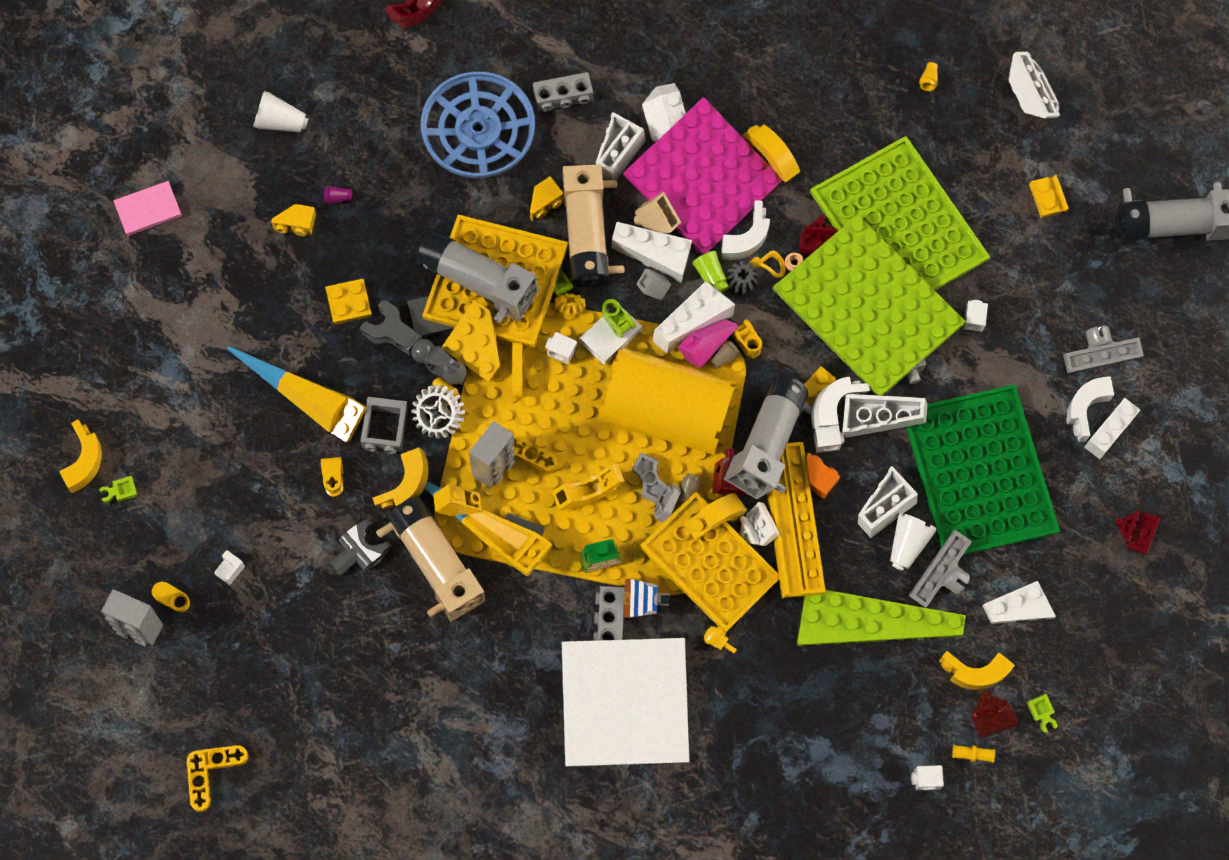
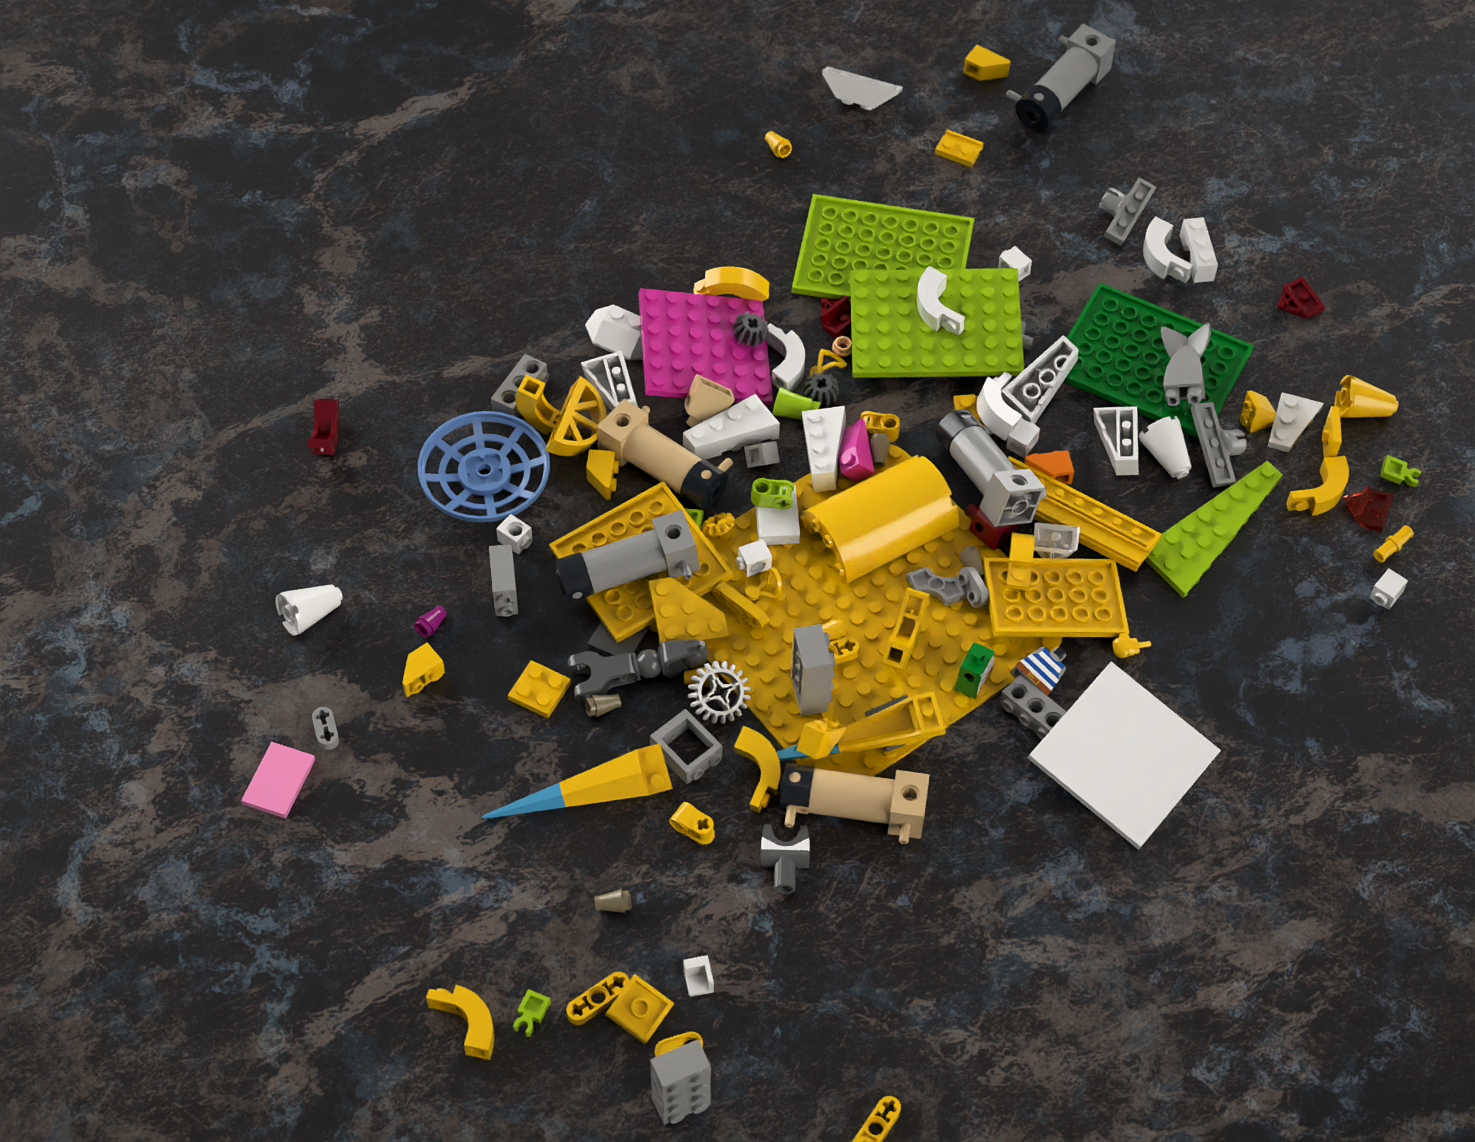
camera: 45 degrees left, 15 degrees down
(149, 523) = (579, 1002): none -> yellow beam
(176, 551) = (639, 1009): none -> yellow plate
(202, 201) = (329, 727): none -> light grey beam
(237, 475) = (614, 901): none -> dark tan cone
(369, 348) = (601, 704): none -> dark tan cone
(401, 212) = (503, 580): none -> light grey window
(446, 180) = (514, 526): none -> white brick
(537, 369) = (752, 593): none -> yellow piece
(551, 122) = (535, 408): none -> yellow arch
(551, 442) = (834, 629): none -> yellow cone
(561, 140) = (593, 402): none -> yellow window
(745, 187) = (750, 329): none -> dark grey gear
(878, 281) = (930, 309): none -> white arch
(978, 502) = (1184, 372): none -> light grey hips
(998, 577) = (1256, 412): none -> yellow slope
(1024, 642) = (1332, 433): none -> yellow plate
(1081, 642) = (1363, 399): none -> yellow cone
(1142, 152) = (985, 64): none -> yellow slope

